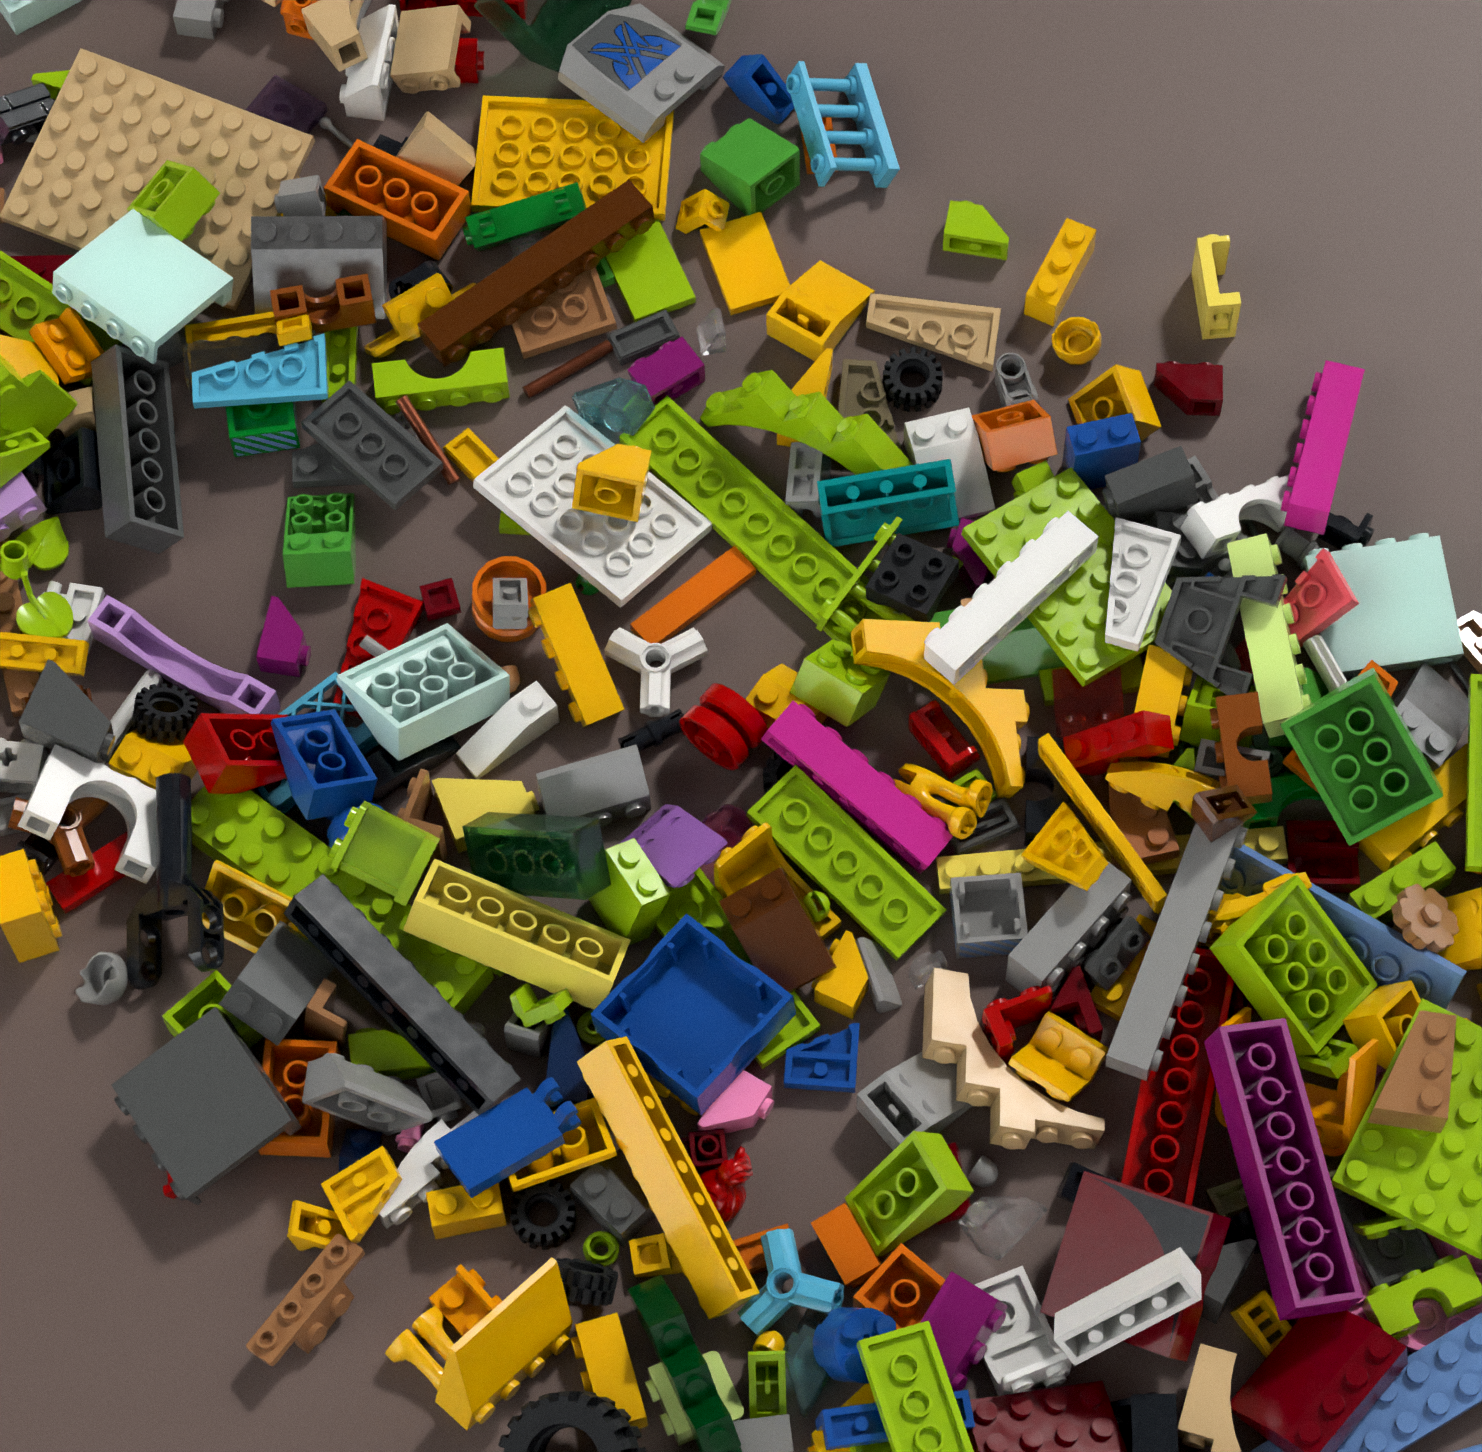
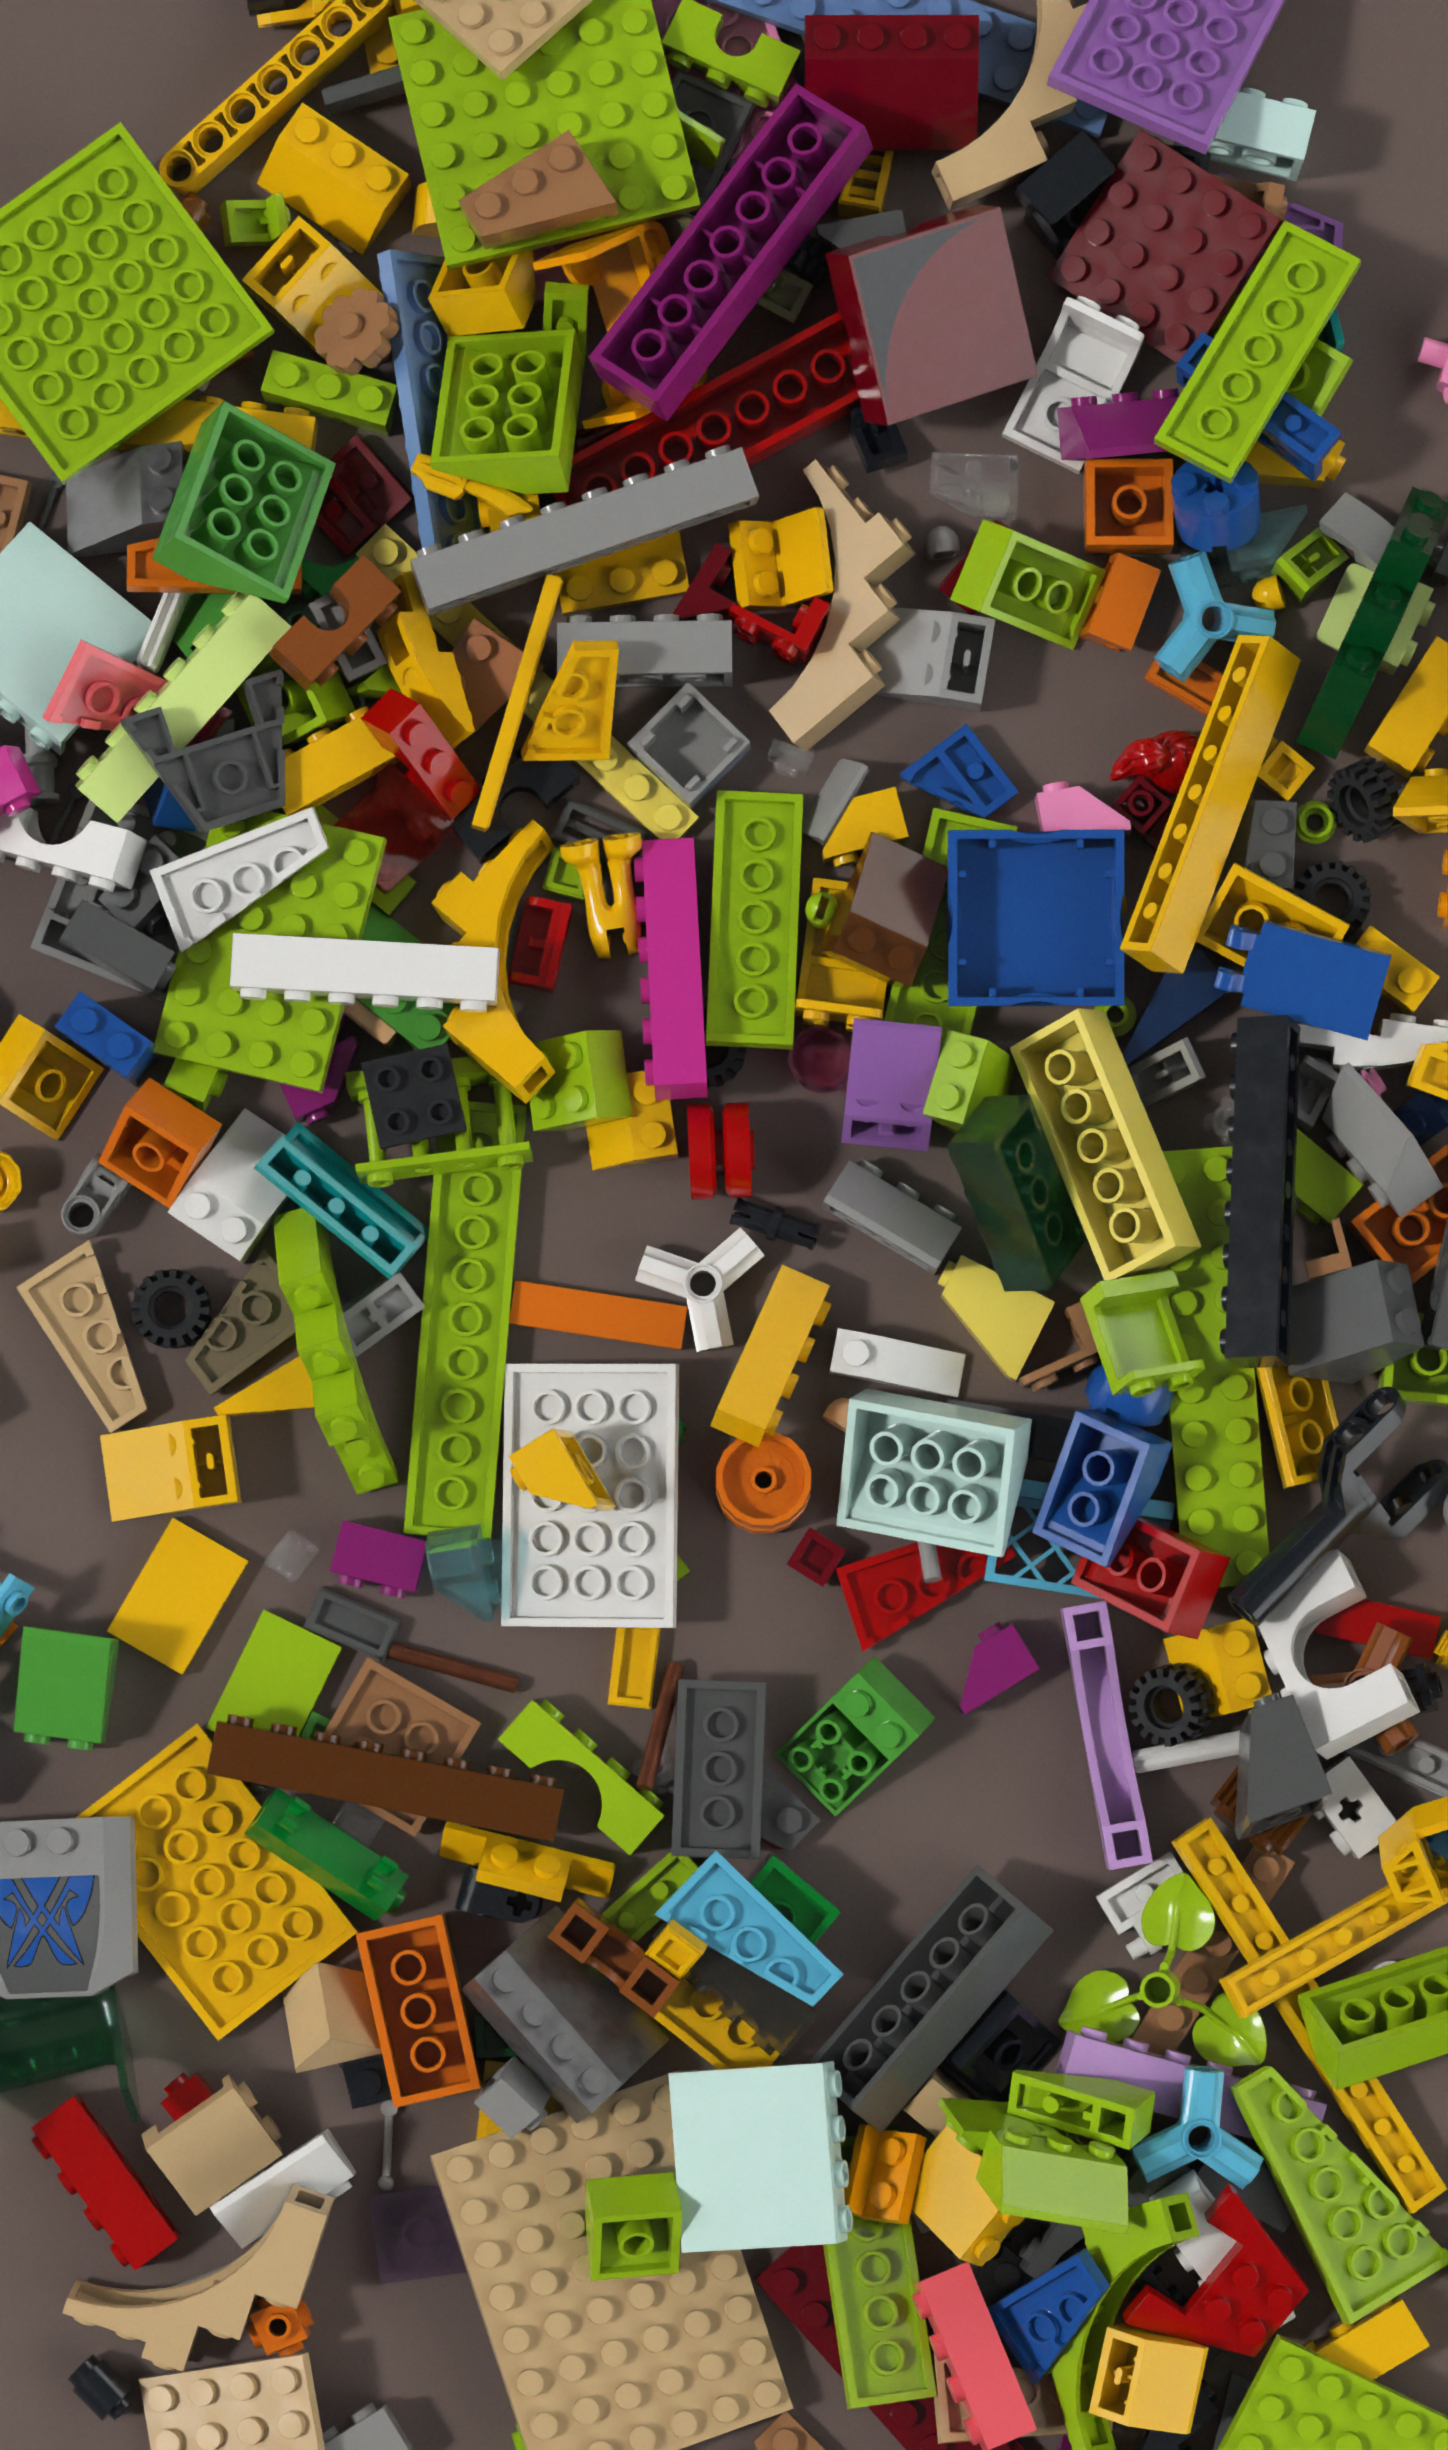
camera: 130 degrees left, 20 degrees up
(510, 603) = (780, 1458): light grey slope -> none
(533, 1010) = (1154, 1062): lime bracket -> none
(702, 209) = (162, 1686): yellow bracket -> none
(1114, 952) = (629, 594): dark grey bracket -> none
(1127, 1306) = (991, 272): white brick -> none
(1221, 810) = (429, 575): reddish brown slope -> none

